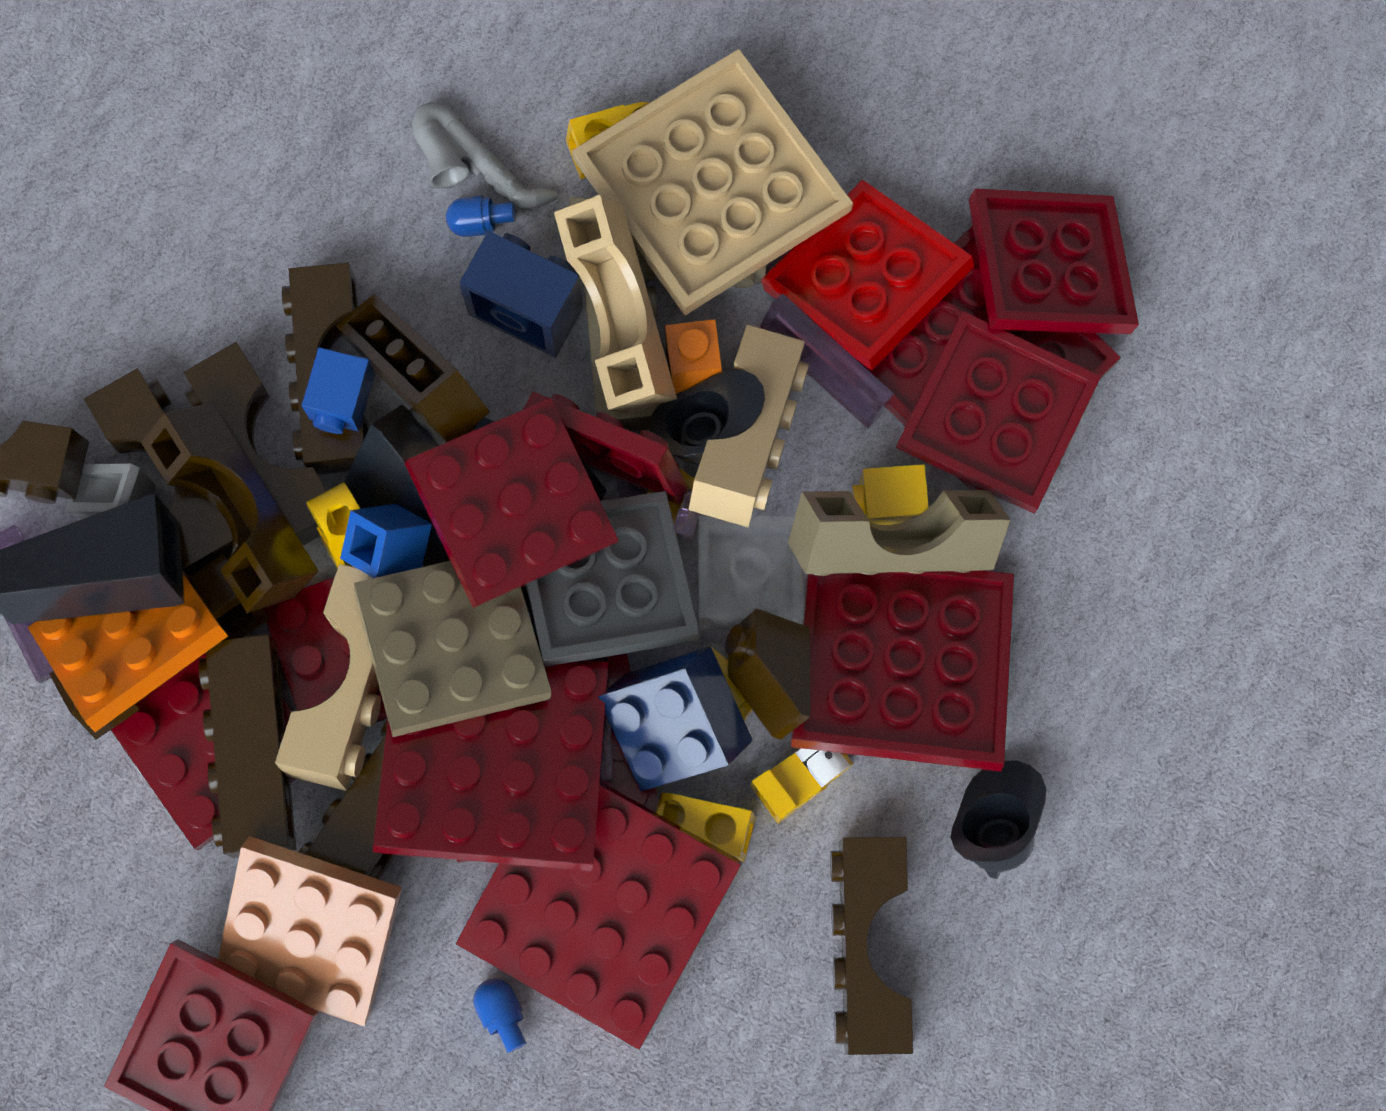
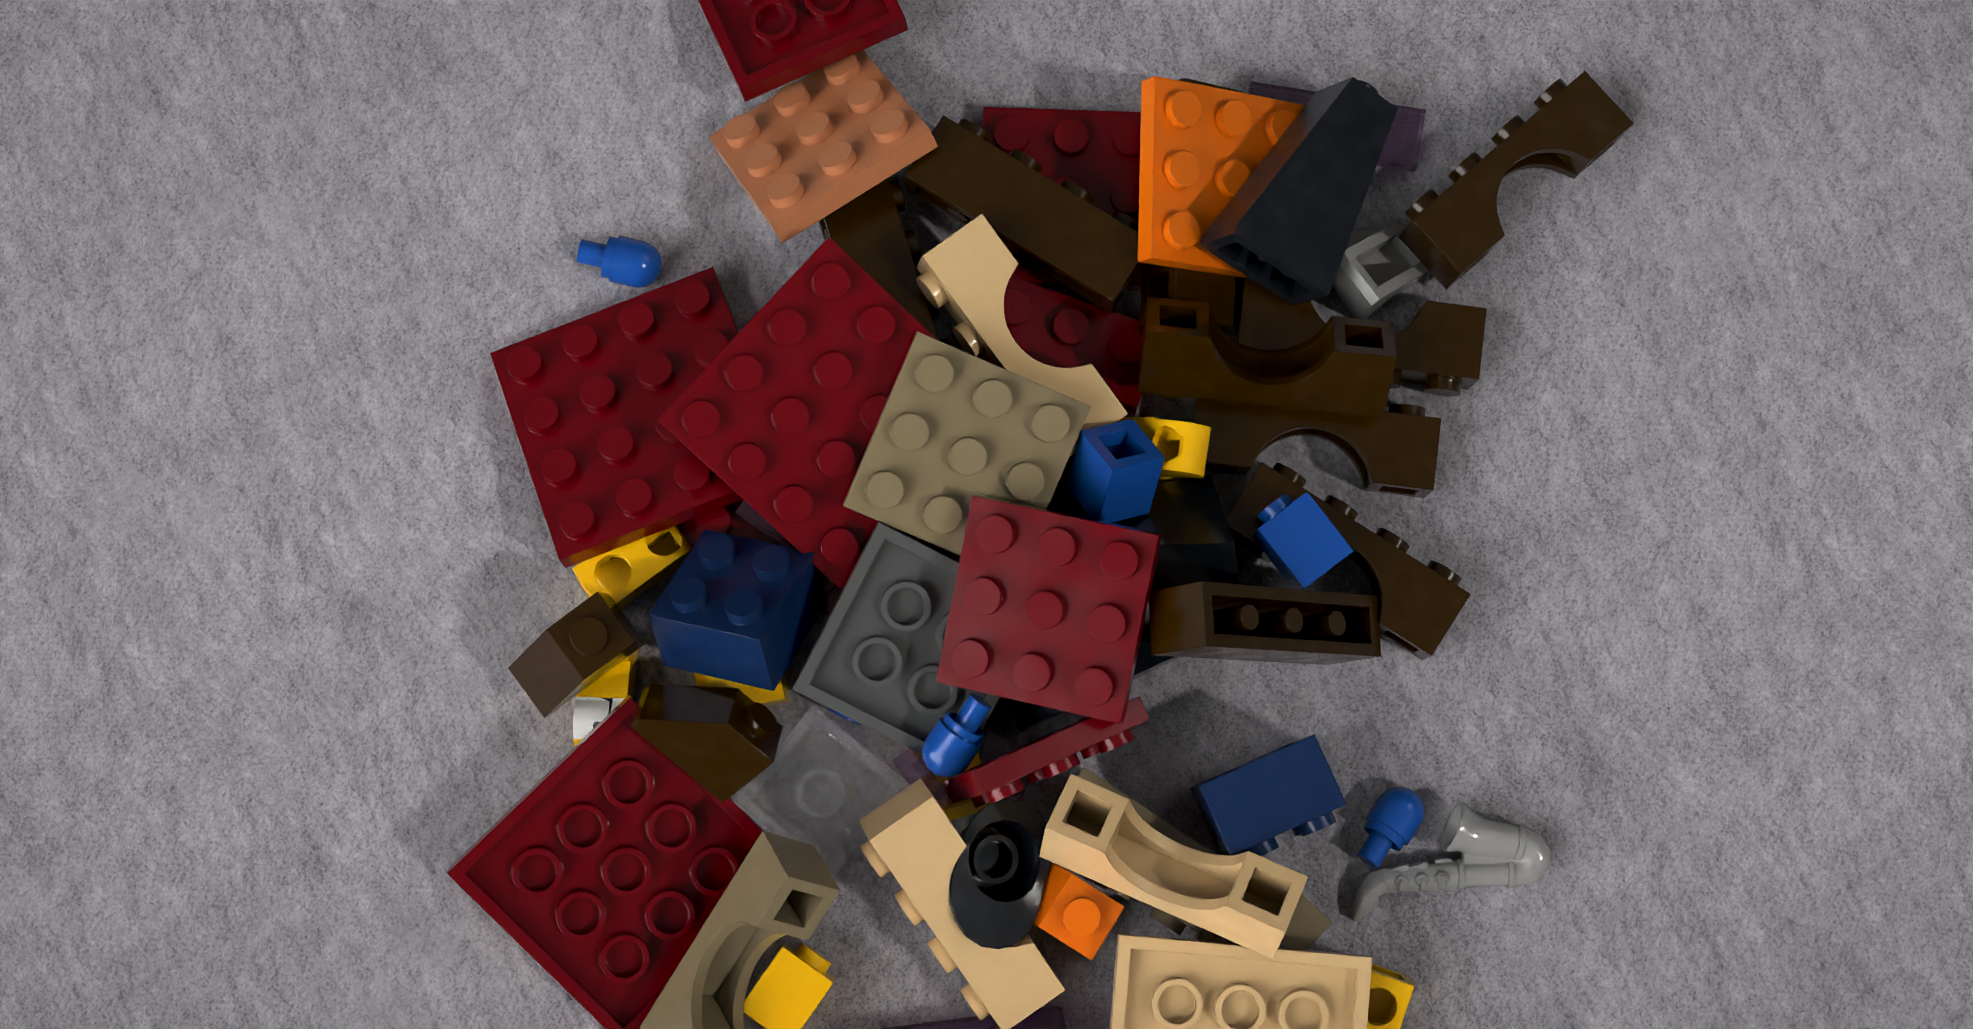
camera: 135 degrees right, 5 degrees up
(645, 504) = (956, 738): none -> blue cylinder
(794, 800) = (575, 652): none -> dark brown slope
(873, 1014) = (460, 675): dark brown arch -> none
(1000, 817) = (413, 836): black piece -> none

